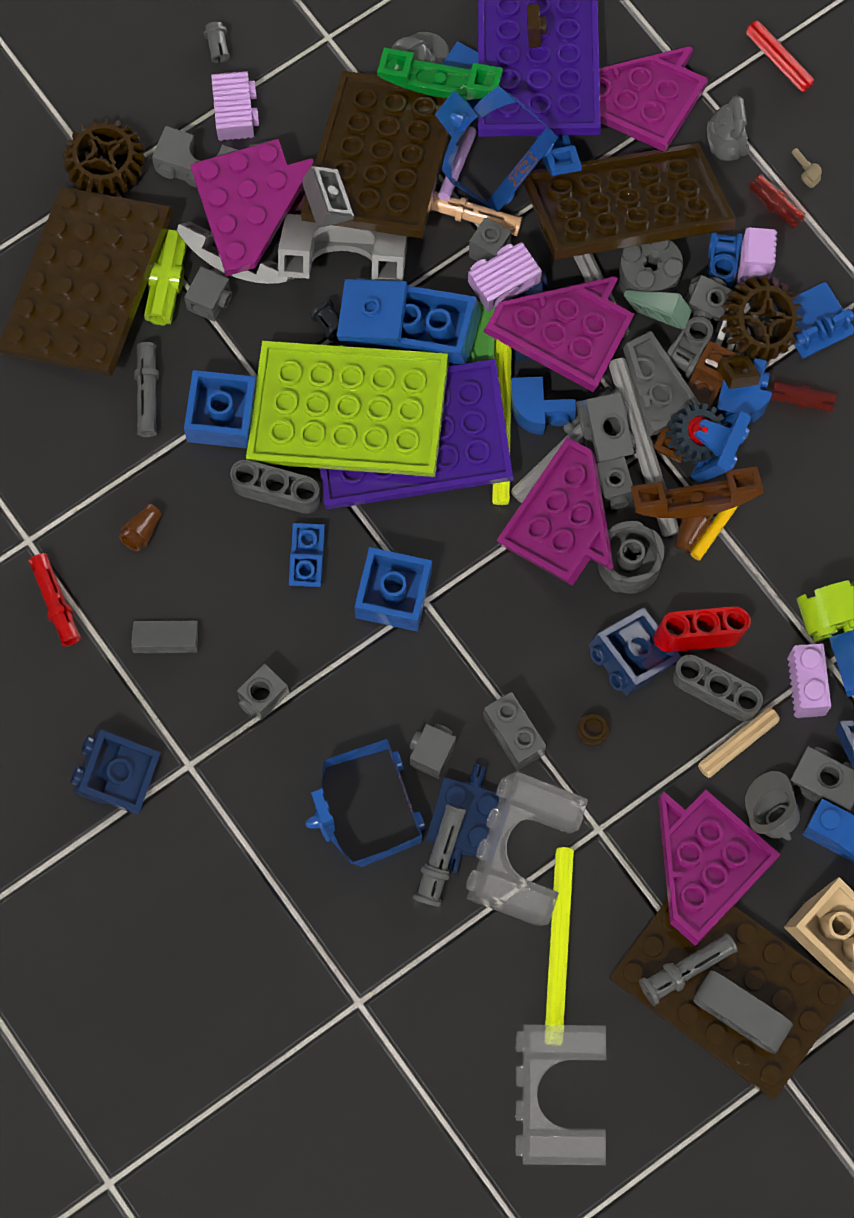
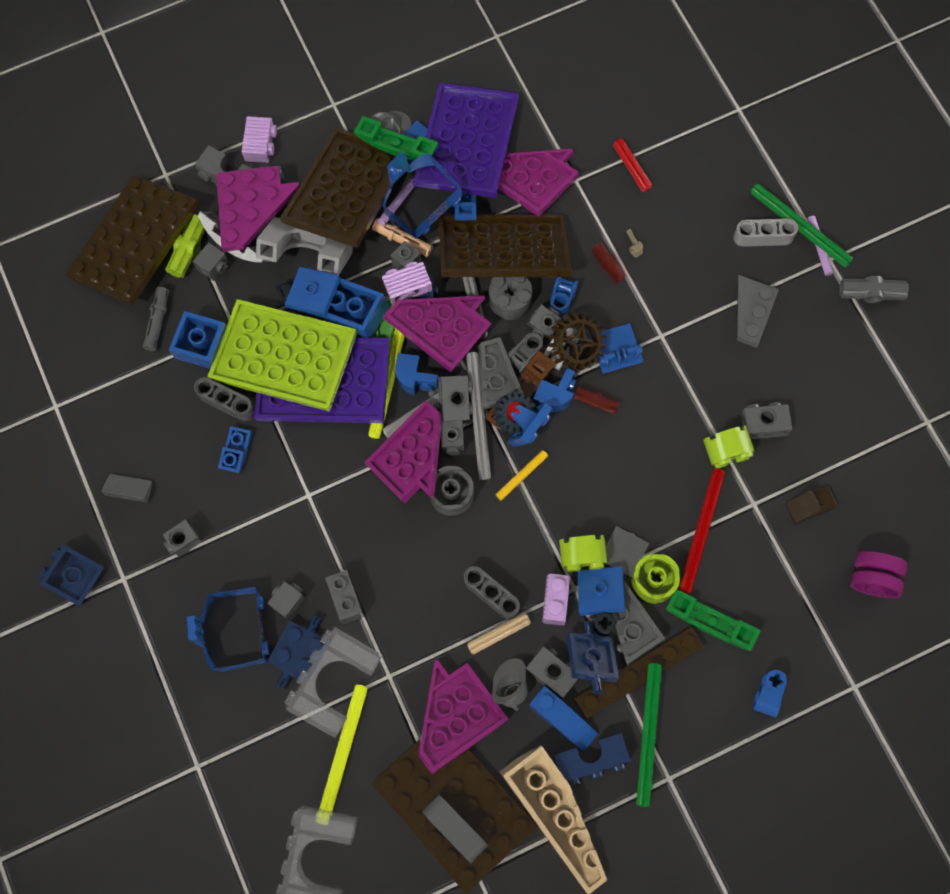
camera: 15 degrees right, 0 degrees up
(59, 611) = (61, 459): red pin -> none
(111, 142) = (178, 157): dark brown gear -> none
(138, 530) = (128, 412): reddish brown cone -> none
(215, 33) = (258, 95): dark grey pin -> none
(326, 196) = (300, 209): dark grey slope -> none
(393, 589) = (285, 483): blue brick -> none
(436, 871) = (267, 687): dark grey pin -> none
(535, 25) = (467, 117): dark brown plate -> none
(593, 729) = (400, 605): dark brown plate -> none
(631, 653) = (439, 556): dark blue plate -> none
(661, 306) = (511, 321): sand green slope -> none
(675, 975) = (413, 793): dark grey pin -> none
(691, 532) = (500, 477): reddish brown cone -> none
(700, 499) = (504, 459): reddish brown slope -> none
(712, 620) = (497, 544): red beam -> none
(727, 131) = (584, 210): dark grey piece -> none
(738, 372) = (552, 375): dark brown plate -> none
(757, 254) = (584, 296): lavender brick -> none

